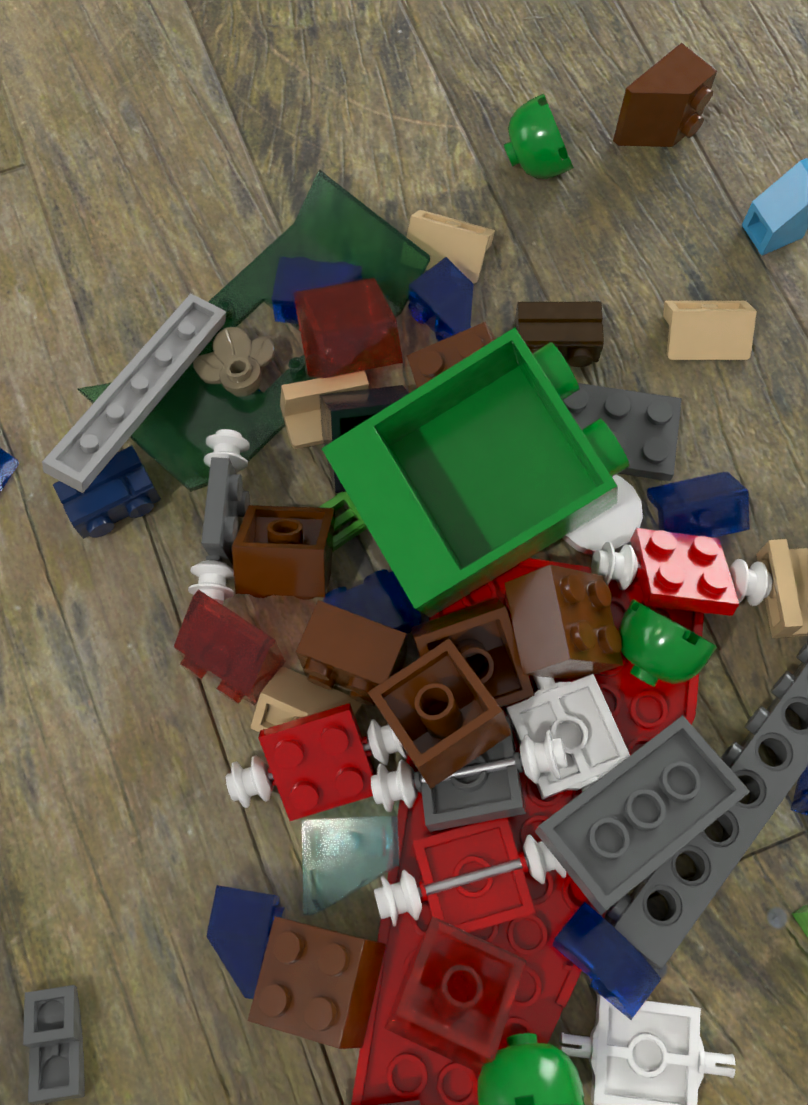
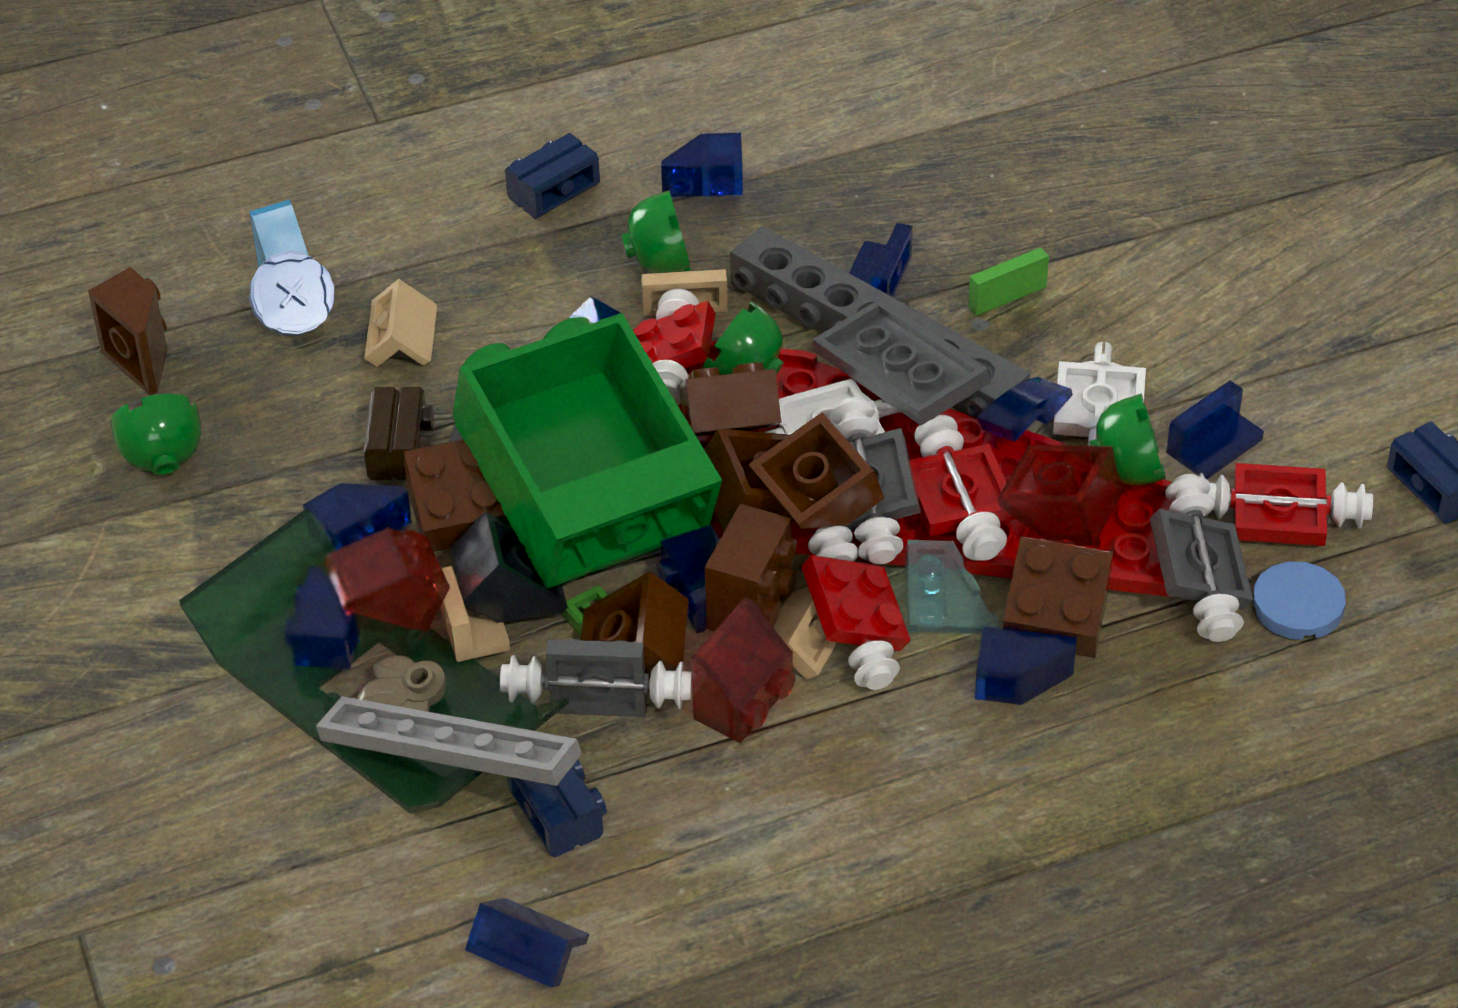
camera: 90 degrees left, 25 degrees down
(55, 1045) = (1141, 813): dark grey slope -> none
(451, 238) = (266, 511): tan panel -> none
(733, 225) = (291, 293): none -> tile

